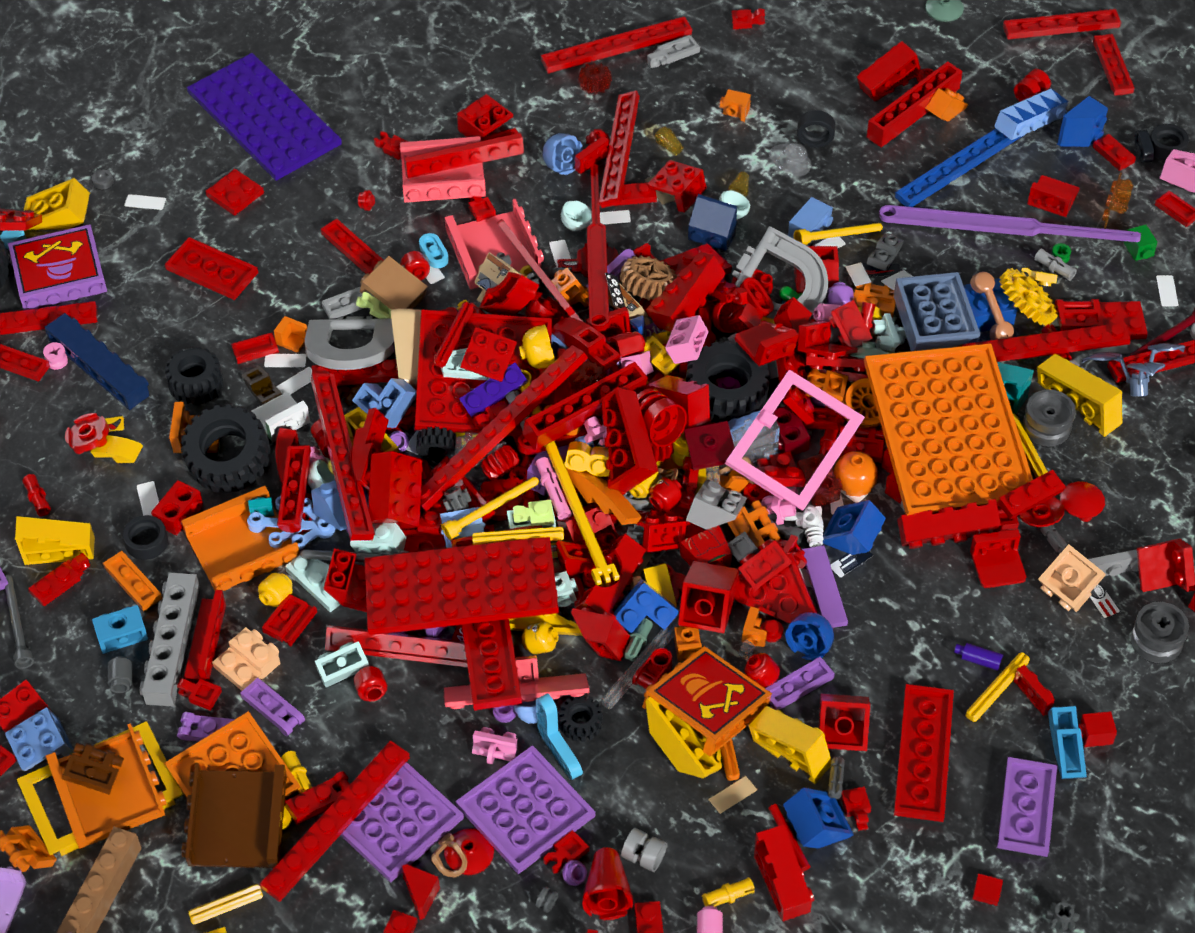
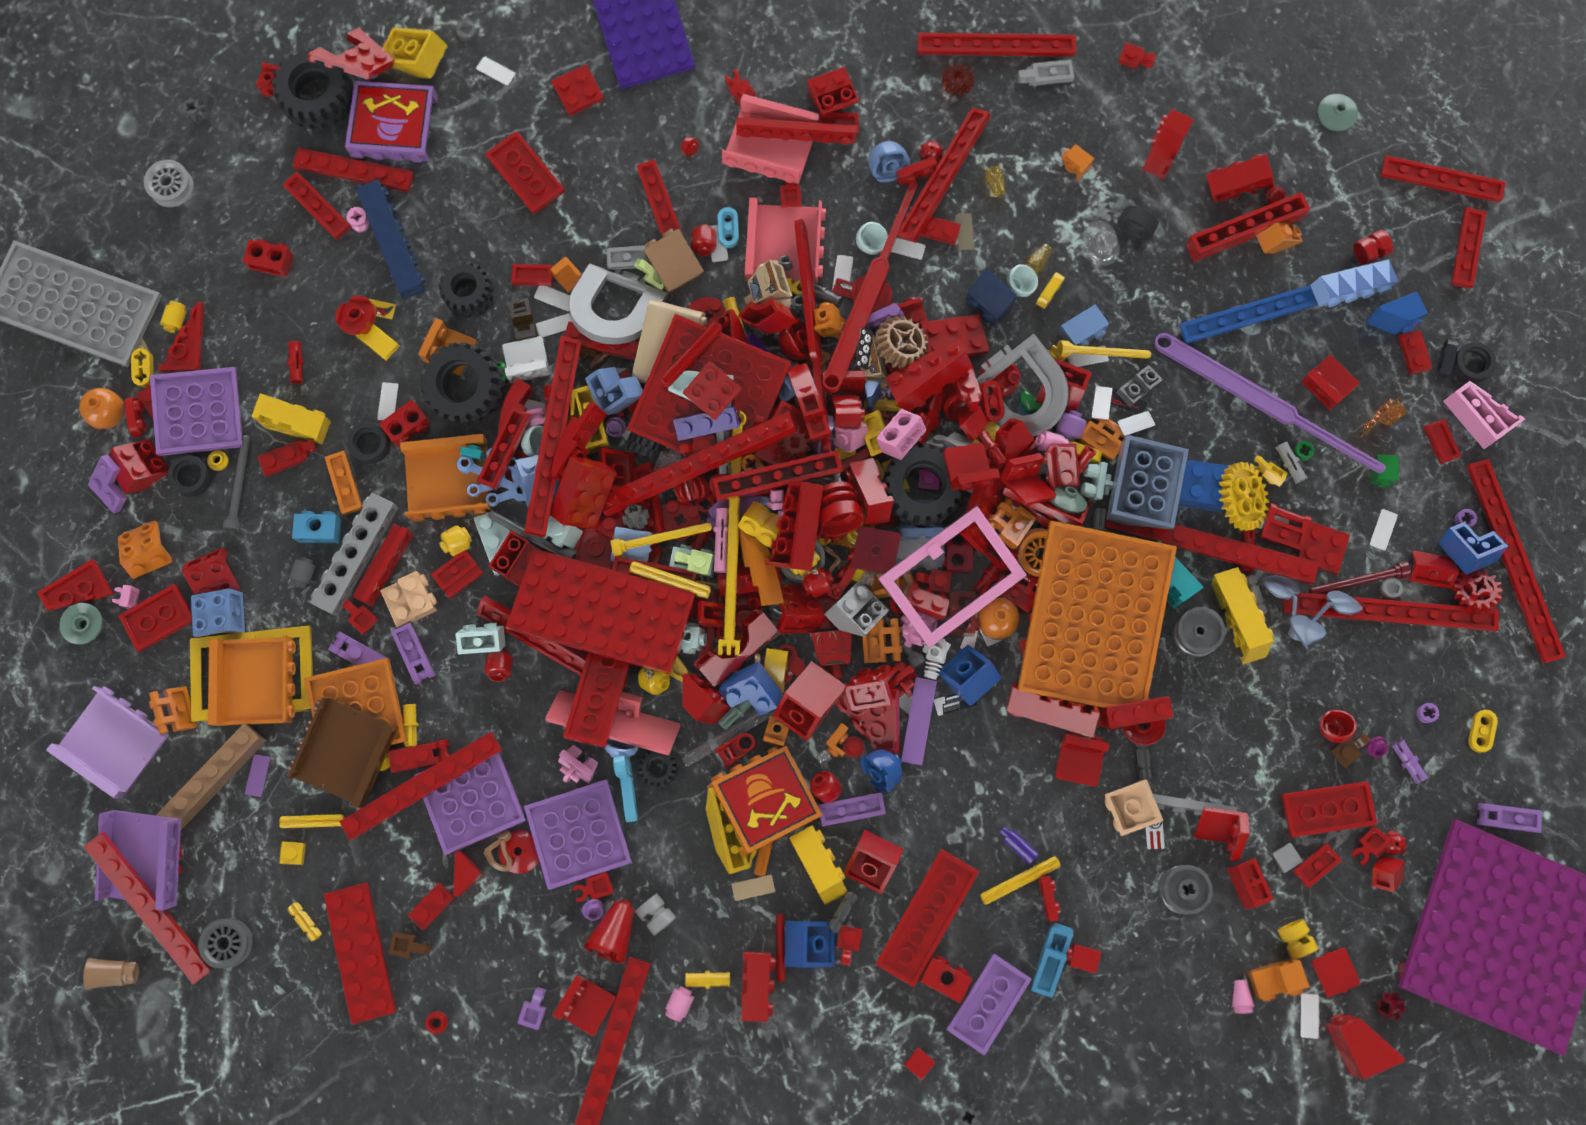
camera: 25 degrees right, 25 degrees up
(91, 773) = (239, 670): reddish brown plate -> none
(144, 885) = (257, 775): none -> medium lavender sticker
(537, 347) = (761, 396): yellow cylinder -> none
(681, 181) = (981, 236): red bracket -> none
(742, 546) = (863, 657): light grey tile -> none
(763, 205) = (1050, 290): none -> yellow beam
(810, 61) = (1167, 143): none -> red wedge
(961, 806) = (932, 977): none -> red brick
(984, 283) = (1204, 474): nougat piece -> none
(1031, 454) = (1165, 655): yellow axle -> none
(1082, 500) = (1188, 725): red dish -> none

